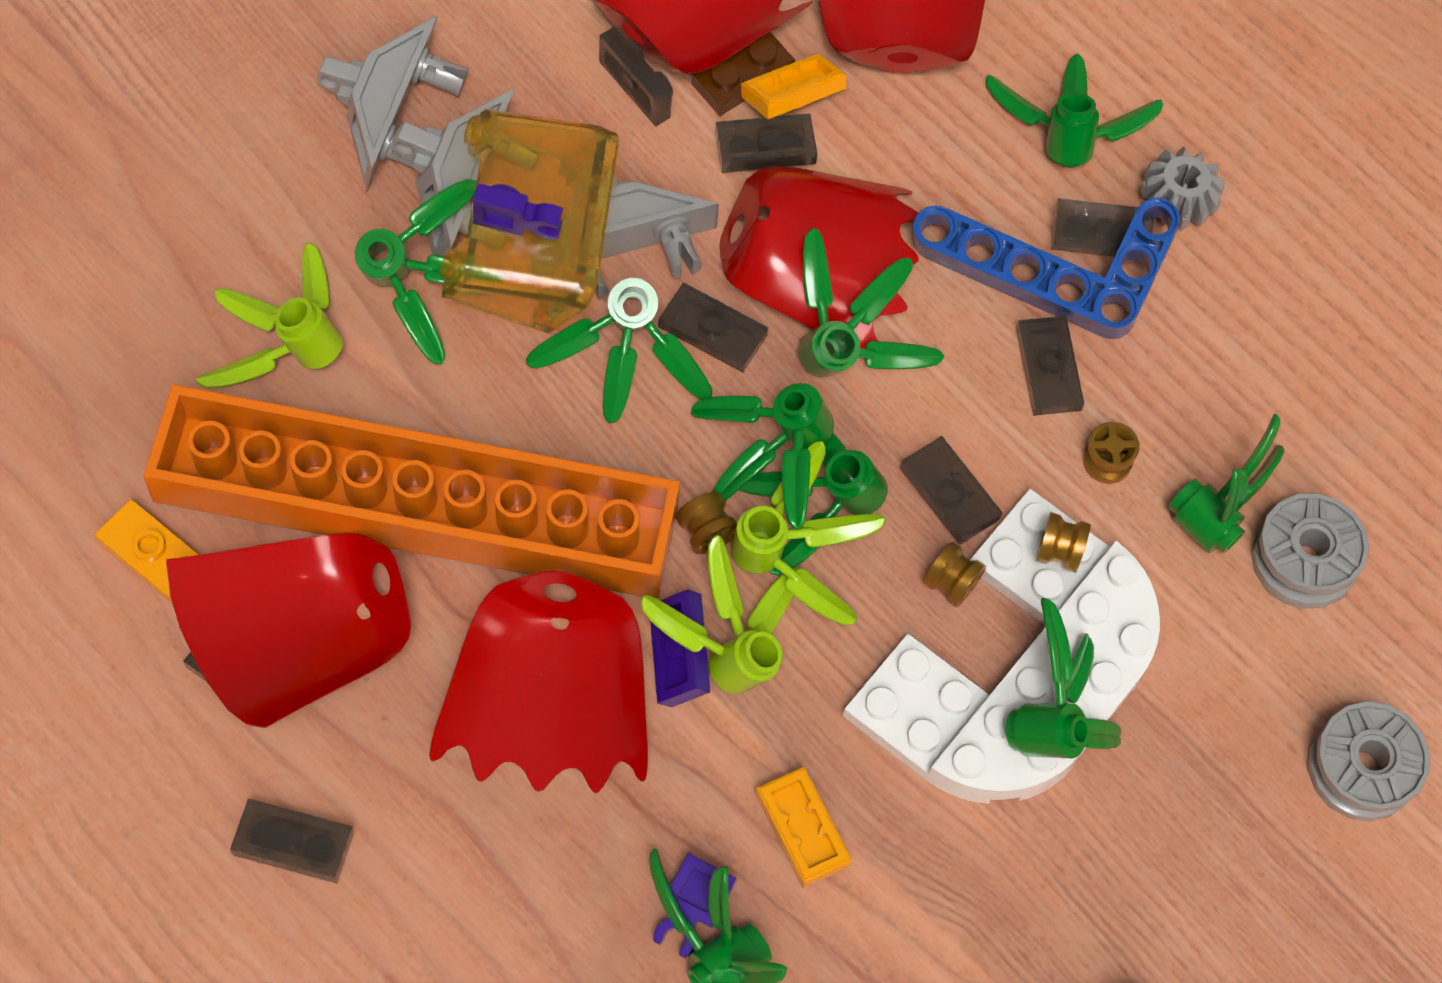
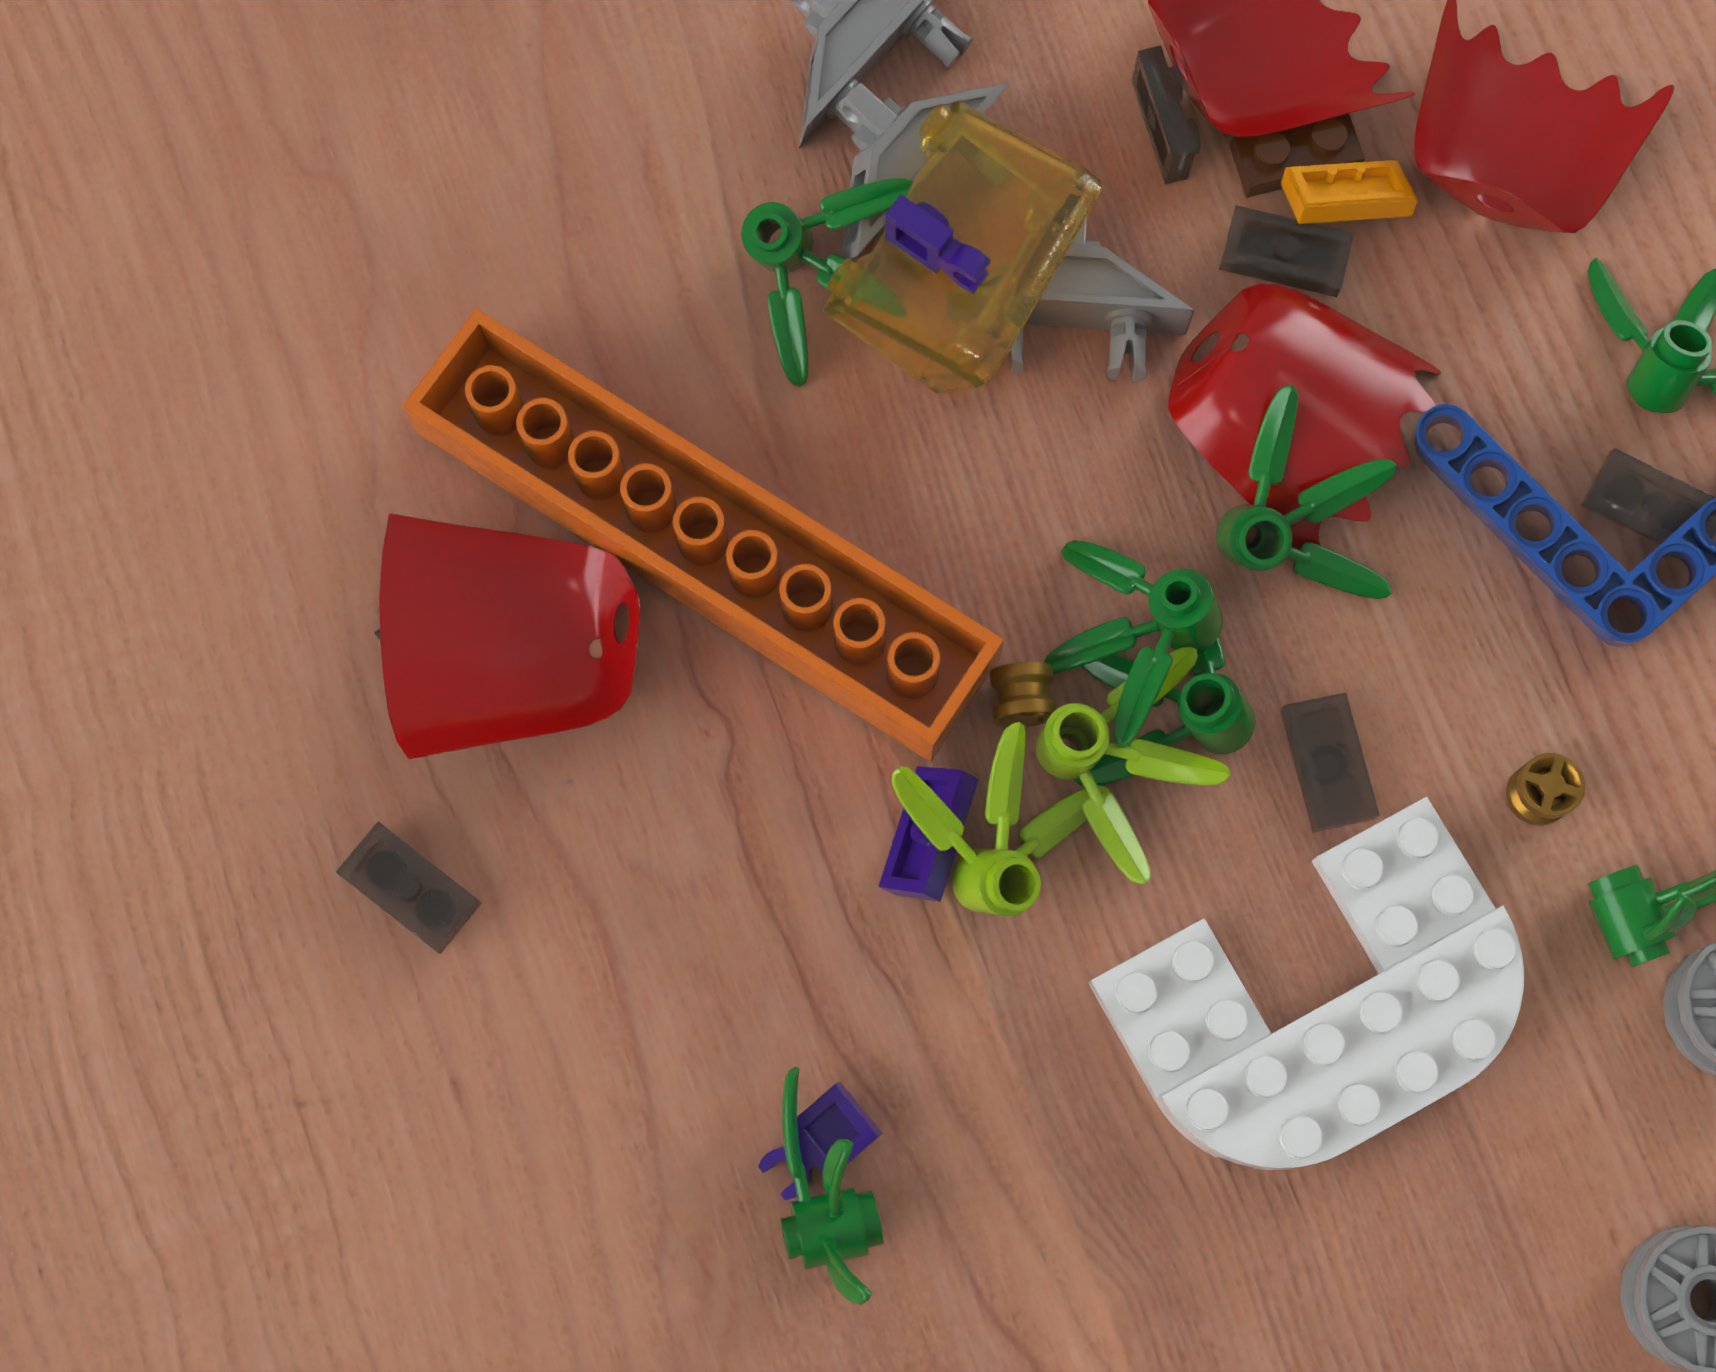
camera: 30 degrees right, 10 degrees up
(142, 545) = (386, 478): light orange plate -> none
(298, 323) = (649, 284): lime plant -> none
(575, 715) = (771, 860): red piece -> none
(623, 358) = (1007, 457): green plant -> none
(713, 327) = (1130, 456): clear smoke plate -> none
(803, 827) = (984, 1102): light orange plate -> none
(954, 574) = (1289, 868): pearl gold wheel -> none
(1049, 365) = (1516, 651): clear smoke plate -> none
(1061, 727) = (1322, 1119): green plant -> none
(1063, 542) = (1435, 886): pearl gold wheel -> none

